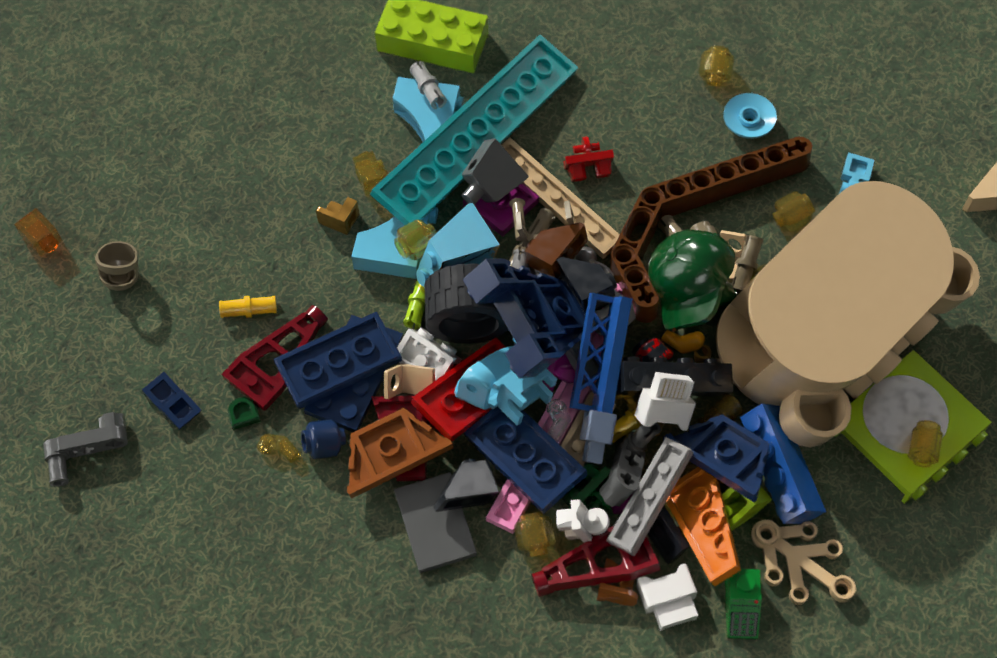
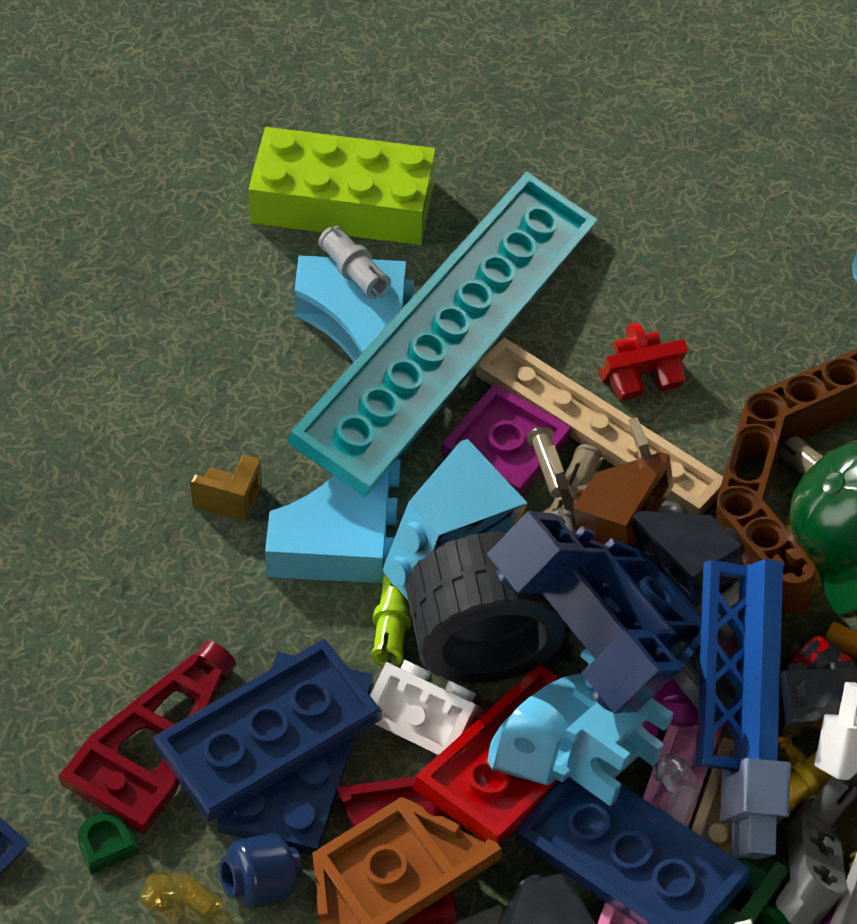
camera: 10 degrees left, 10 degrees down
(247, 306) = (89, 656): yellow pin -> none
(369, 171) = (271, 413): clear yellow brick -> none
(408, 379) = (399, 750): tan bracket -> none
(413, 239) = (375, 509): clear yellow head -> none
(491, 173) = (489, 391): dark grey torso -> none
(716, 65) = (825, 198): clear yellow head -> none

